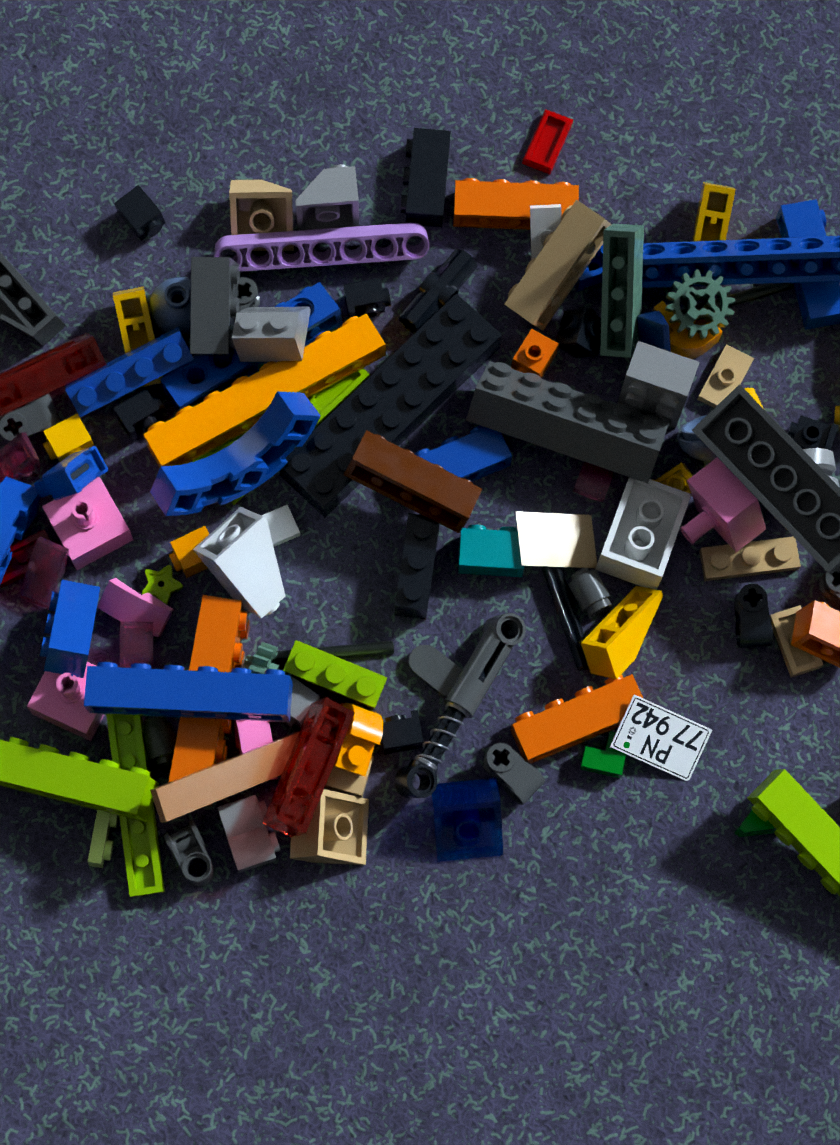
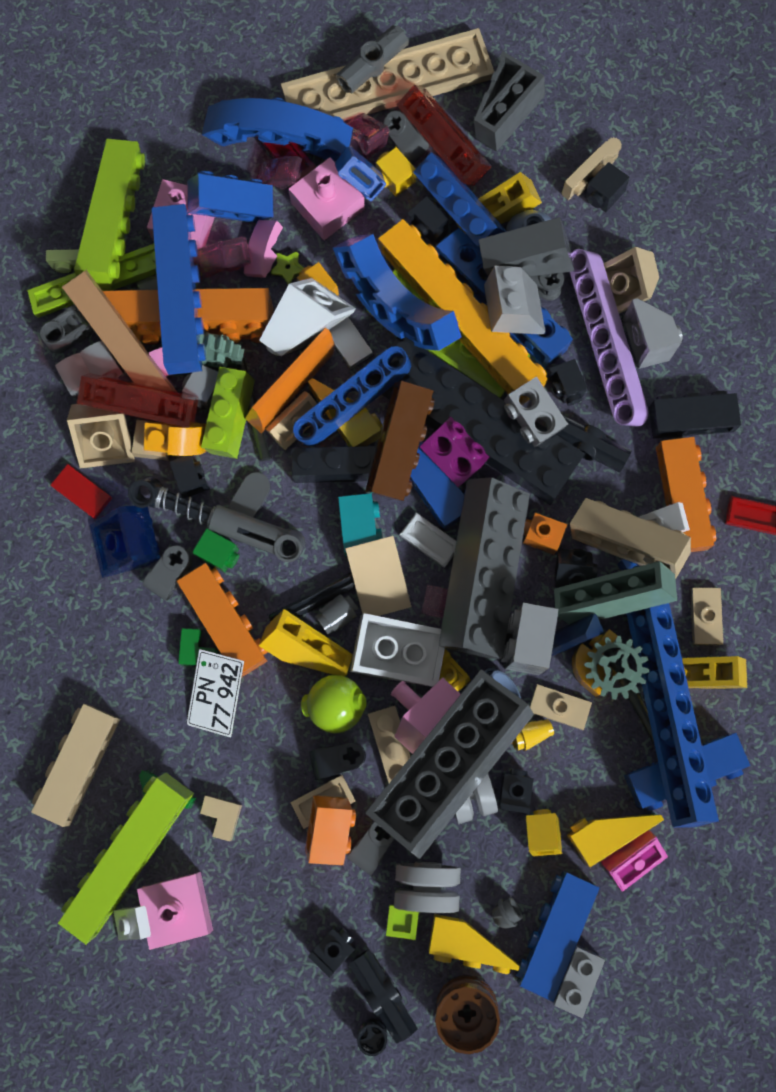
camera: 85 degrees right, 5 degrees up
(112, 225) = (591, 167): none -> tan hinge
(316, 603) = (291, 381): none -> orange slope
(350, 508) = (358, 383): none -> blue beam
(354, 604) = (282, 427): none -> tan plate
(366, 541) = (357, 431): none -> yellow slope
(395, 865) = (81, 491): none -> red tile
(403, 324) = (542, 408): none -> light grey brick
(433, 432) = (450, 455): none -> magenta brick
(496, 714) = (216, 551): none -> green brick
(519, 480) = (429, 540): none -> white tile
(649, 211) = (706, 616): none -> tan plate
(693, 607) = (334, 704): none -> lime brick
(720, 907) = (75, 765): none -> tan brick
(796, 748) = (226, 814): none -> tan piece

